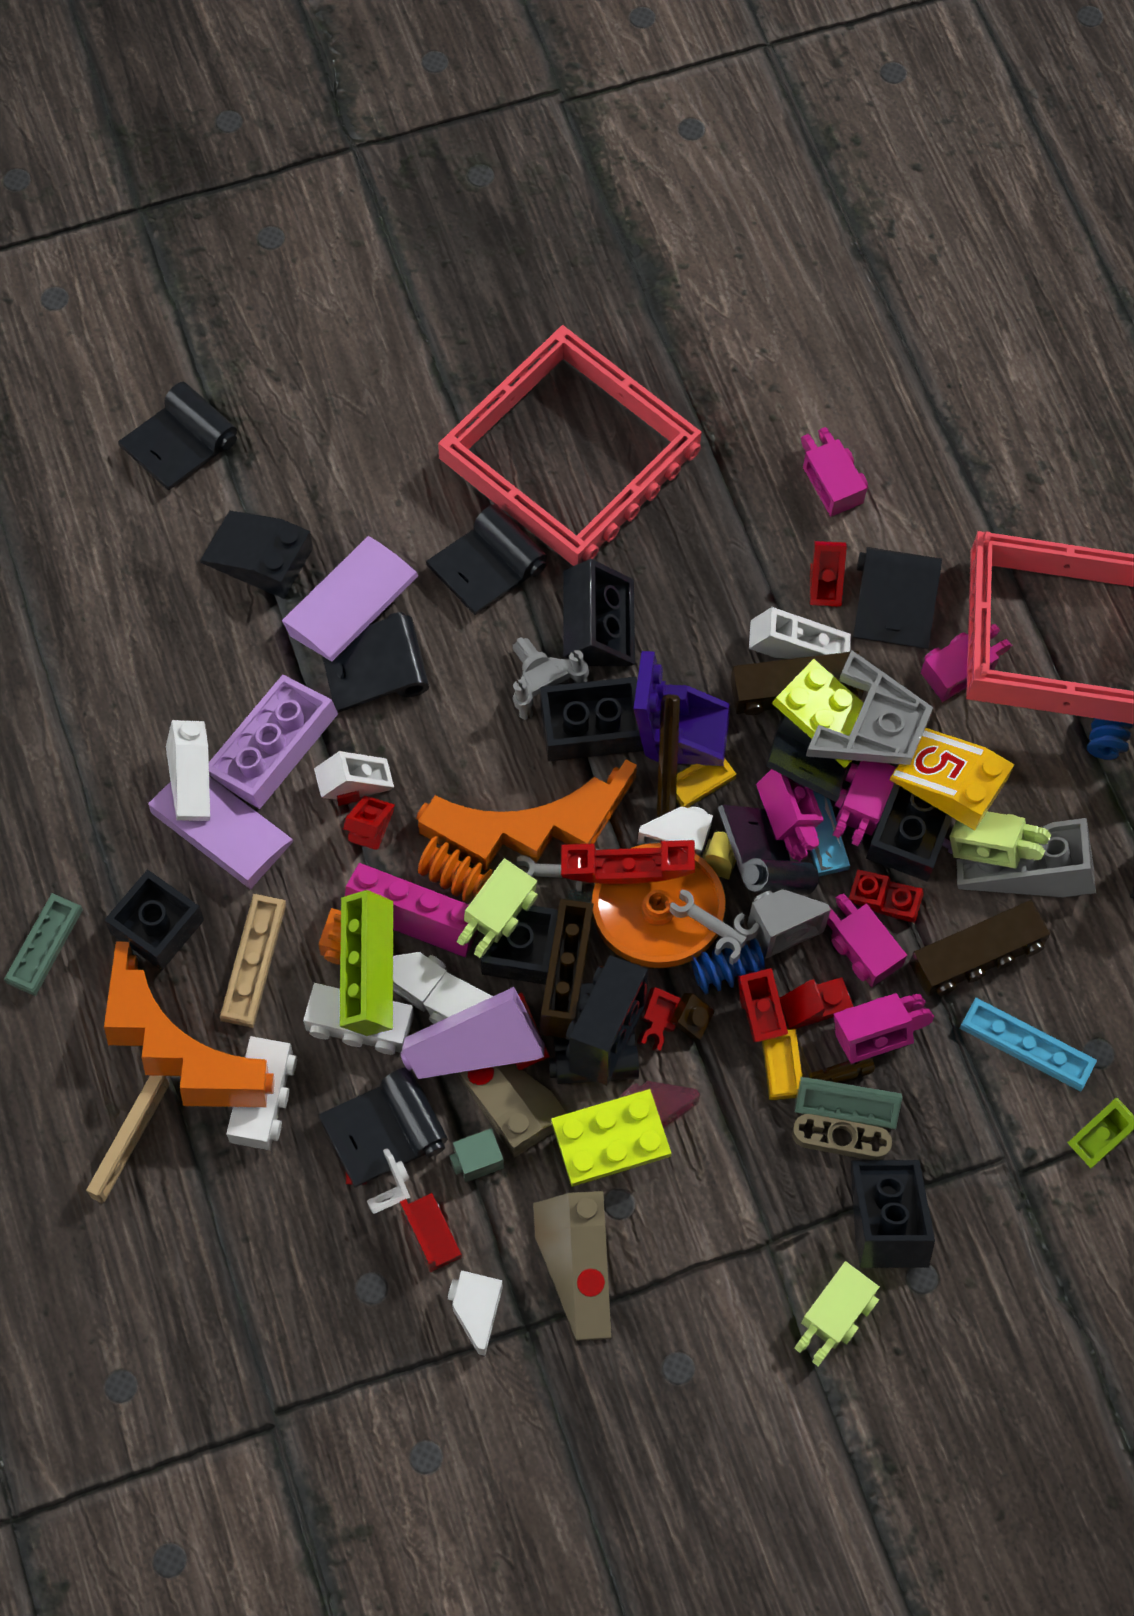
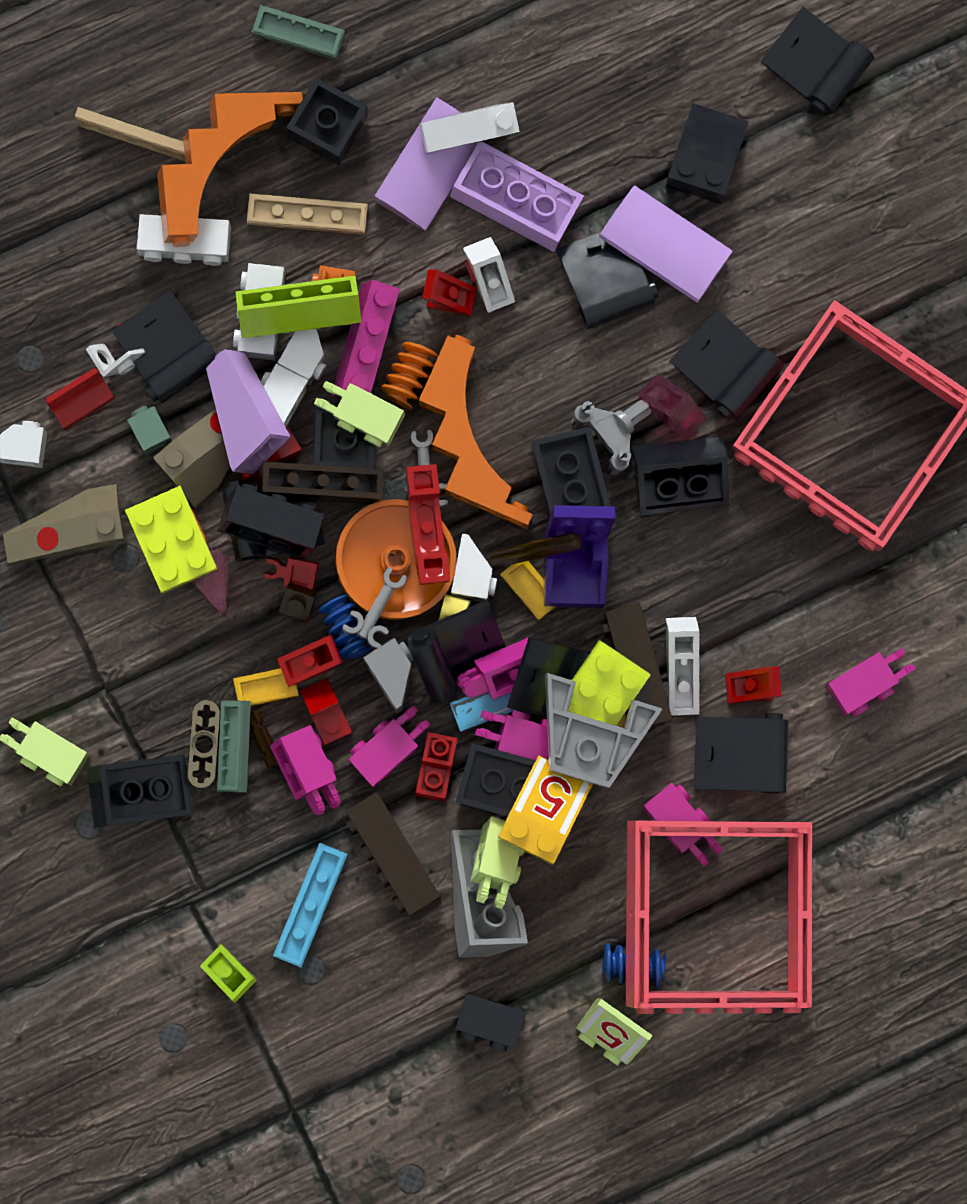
camera: 80 degrees right, 15 degrees up
(523, 615) = (672, 406): none -> clear pink slope

